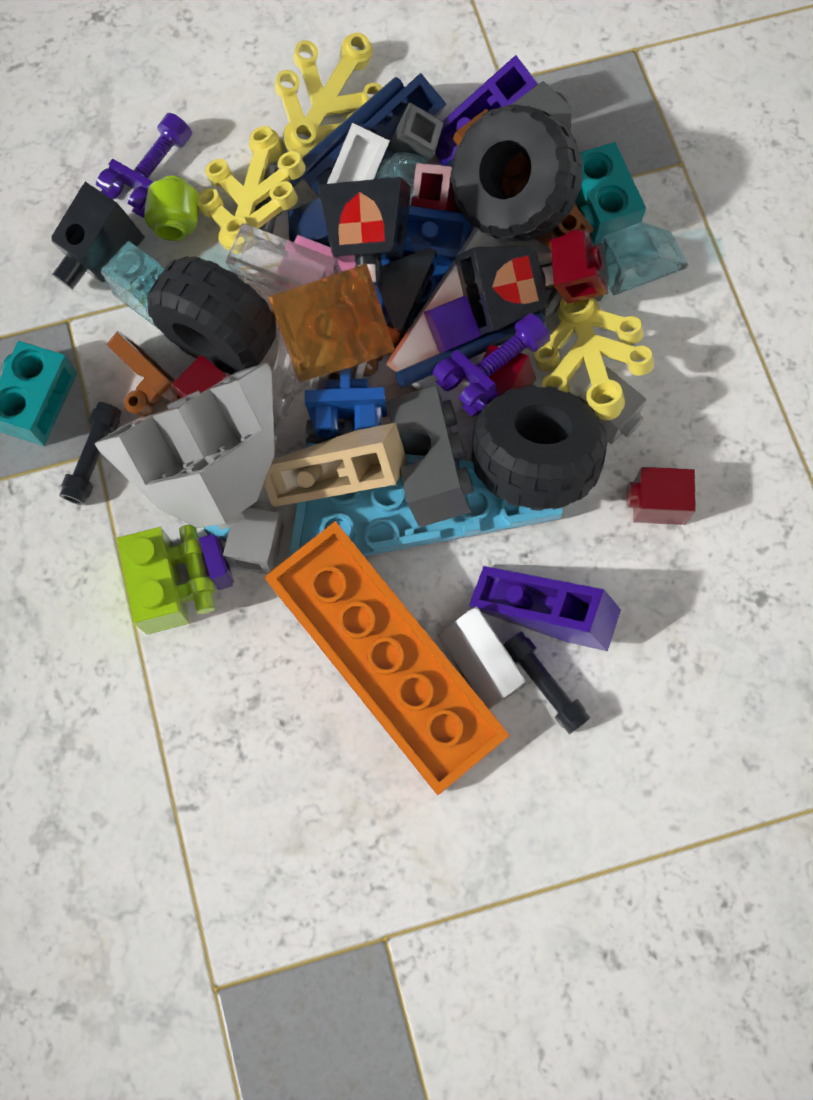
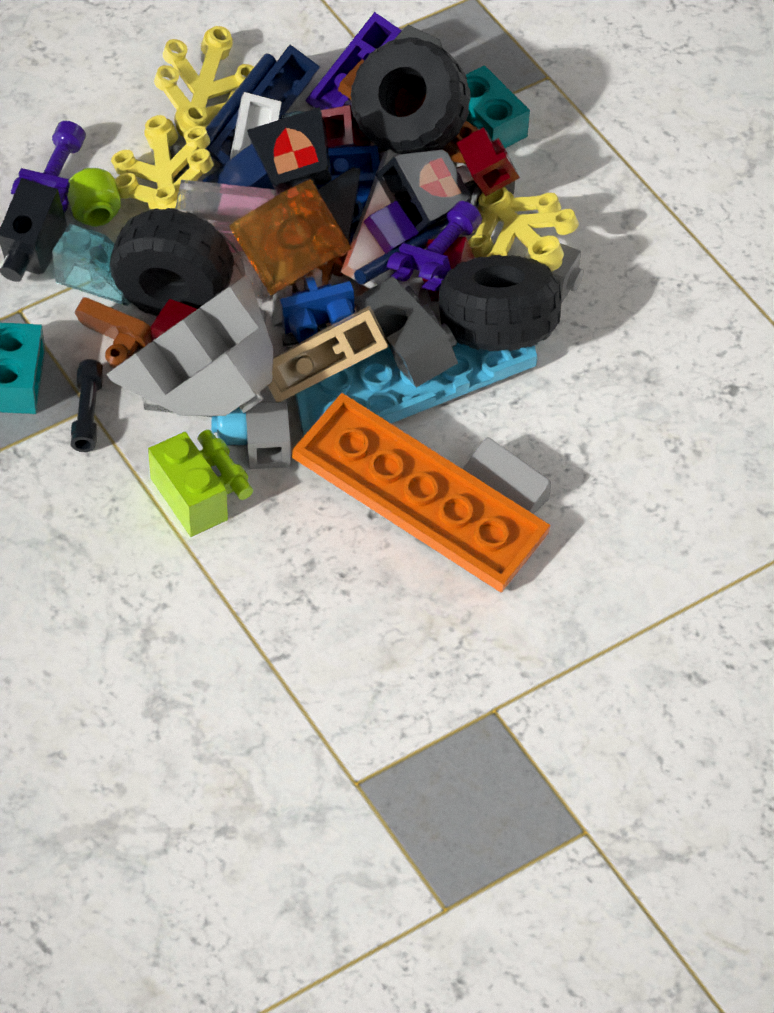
camera: 20 degrees left, 20 degrees down
(216, 563) = (242, 454): dark purple tile -> none
(417, 133) = (300, 93): dark grey slope -> none
(548, 606) = (554, 426): dark purple slope -> none
(570, 714) = (596, 505): black bar -> none
(641, 256) = (537, 152): clear light blue slope -> none
(662, 495) = (620, 325): dark red brick -> none

